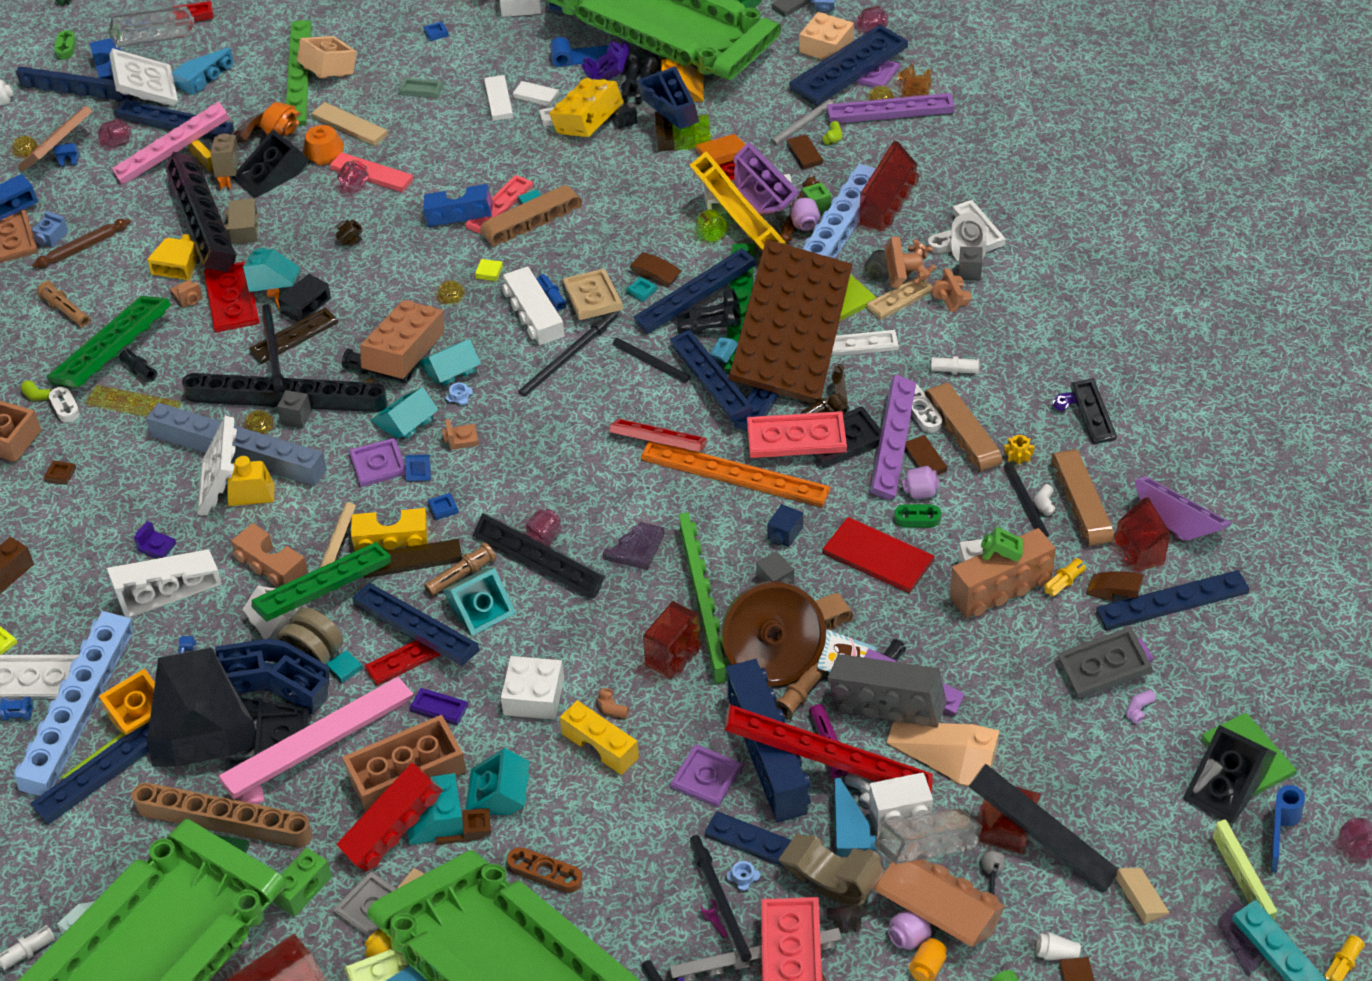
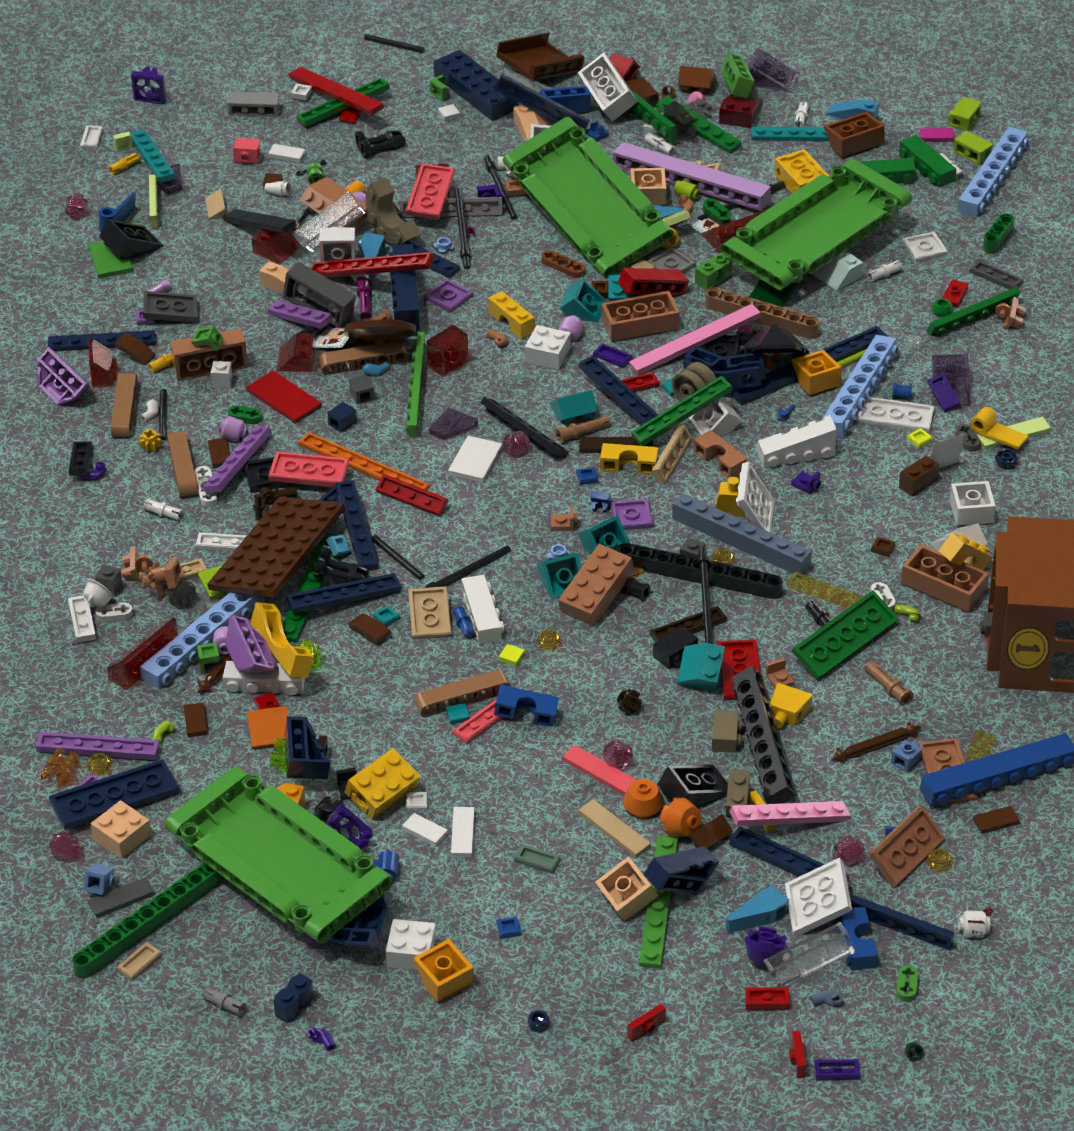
camera: 170 degrees left, 5 degrees down
(193, 36) = (764, 944): none -> dark purple cone
(276, 65) = (682, 870): none -> dark blue wedge
(506, 731) = (574, 325): none -> lavender head
(593, 505) = (475, 459): none -> white tile
(801, 123) = (191, 749): light grey bar -> none
(885, 615) = (297, 354): none -> clear red slope

